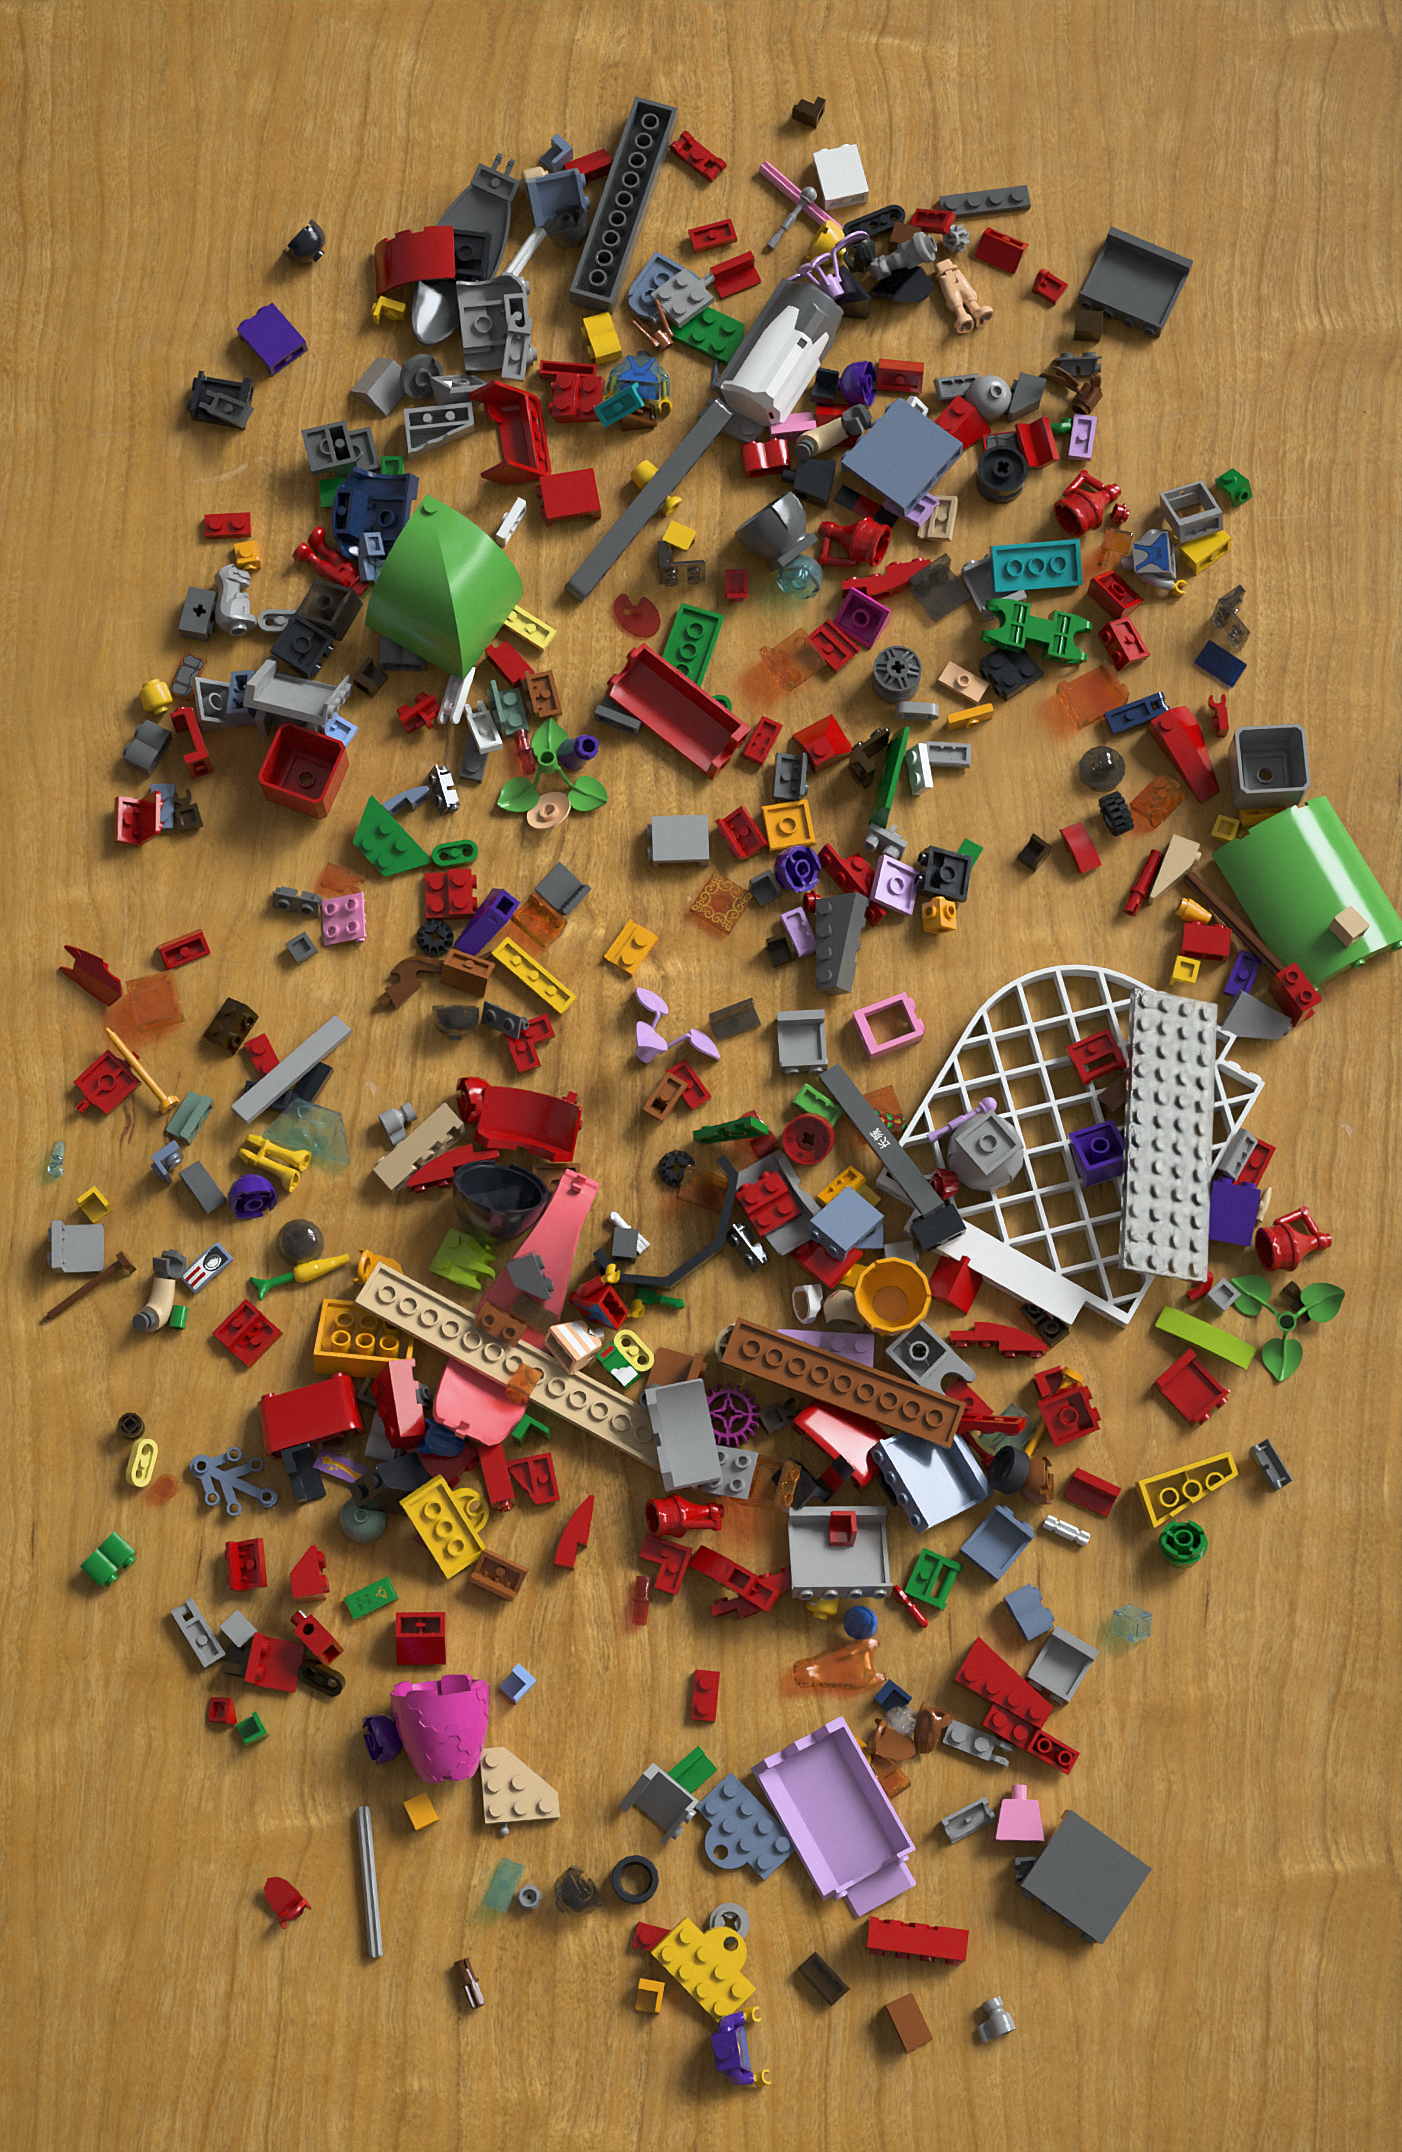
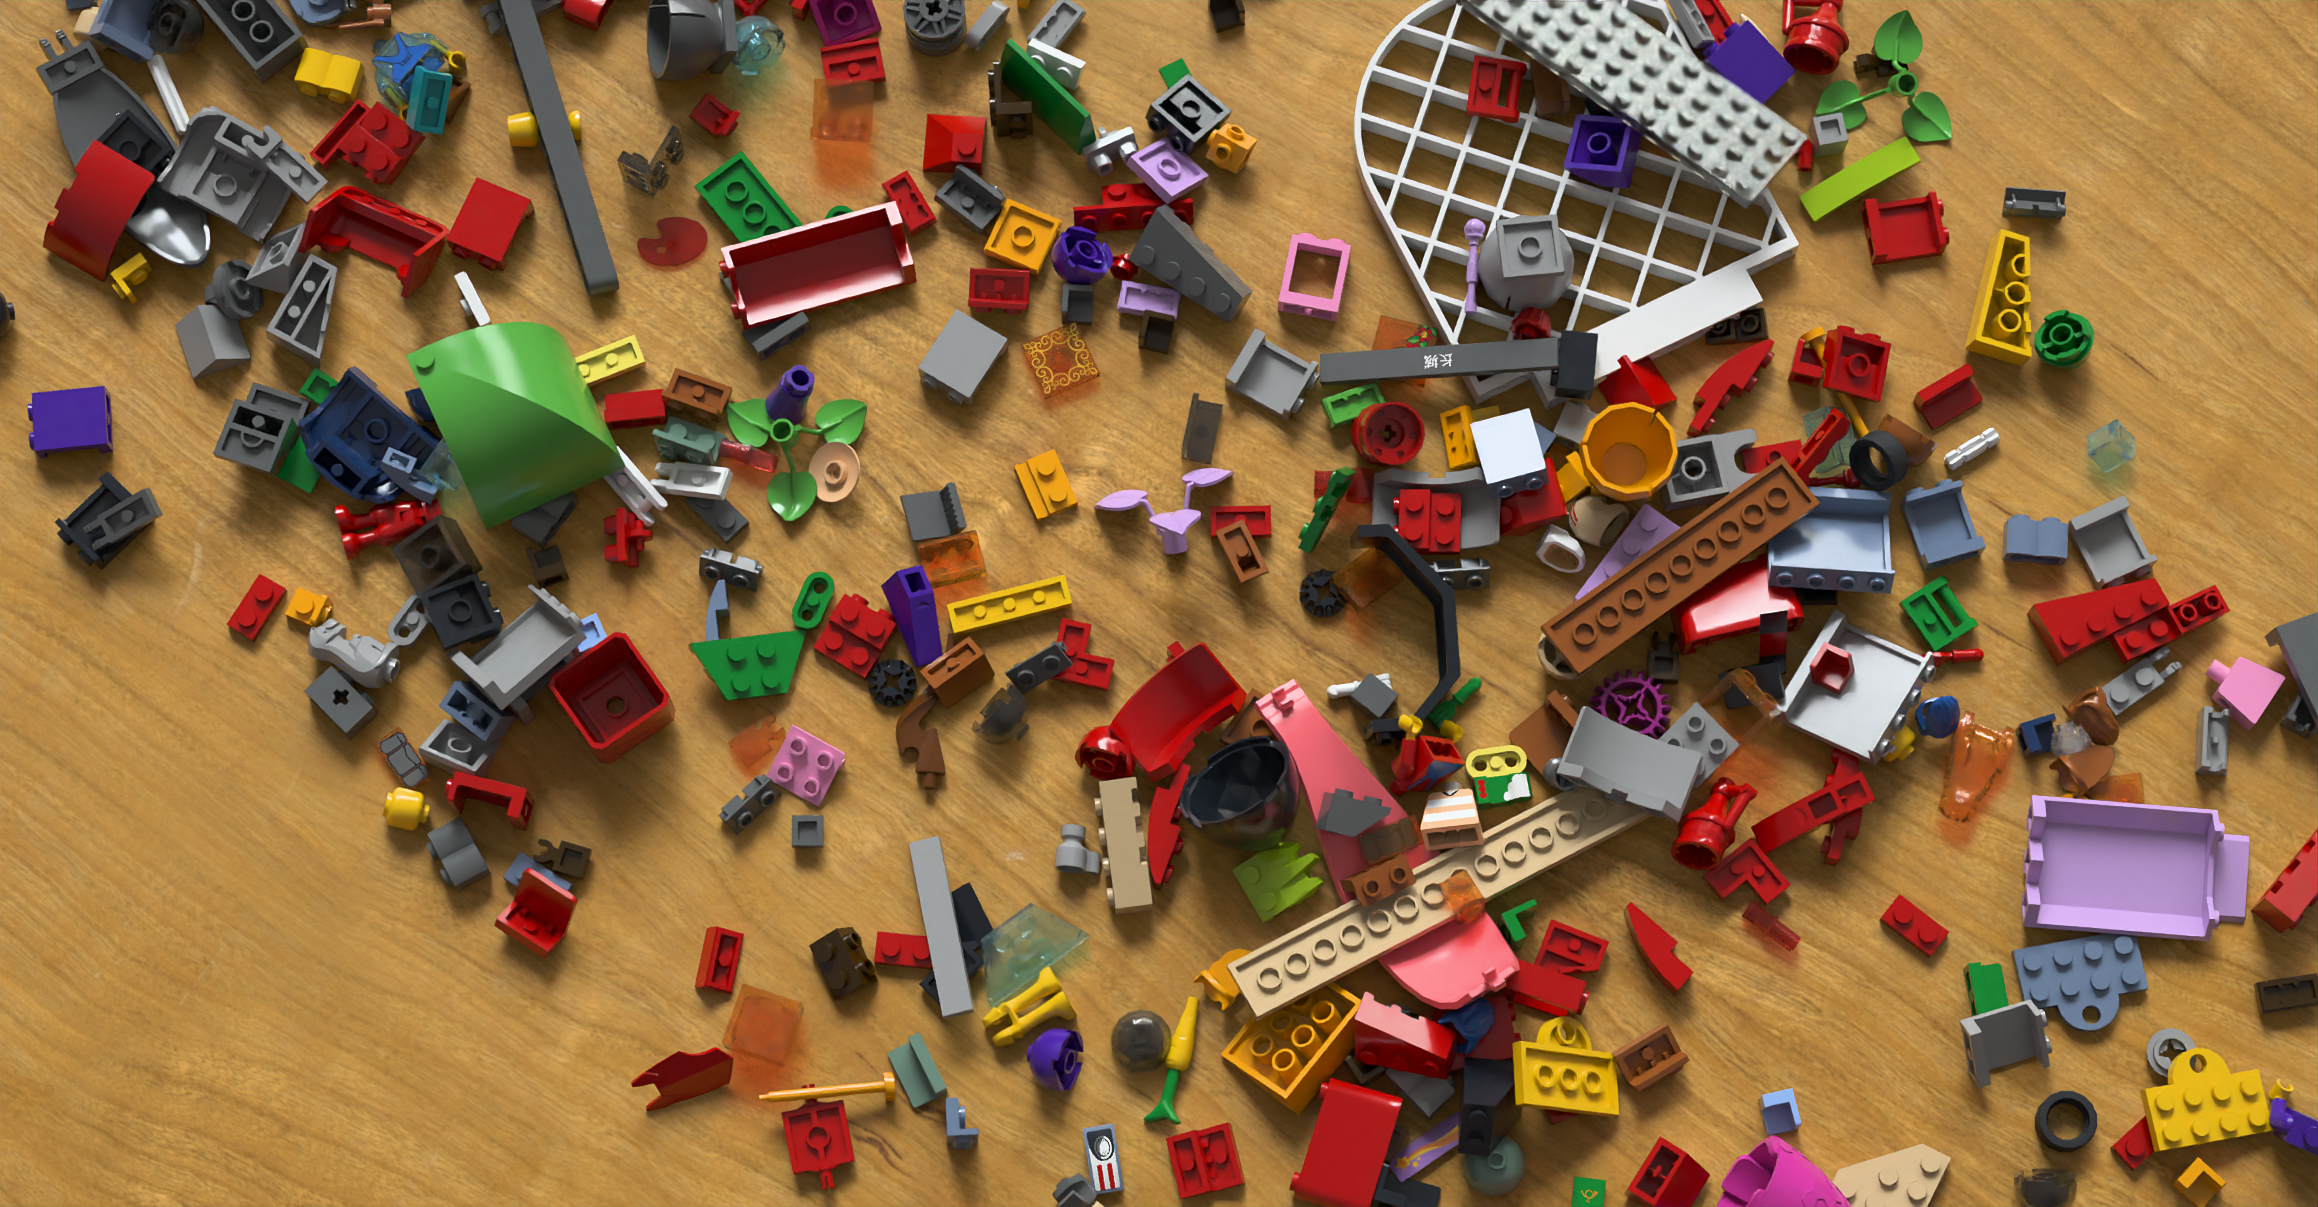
camera: 55 degrees left, 0 degrees up
(202, 1187) = (1009, 1105): dark grey slope -> none
(679, 536) = (618, 138): yellow panel -> none

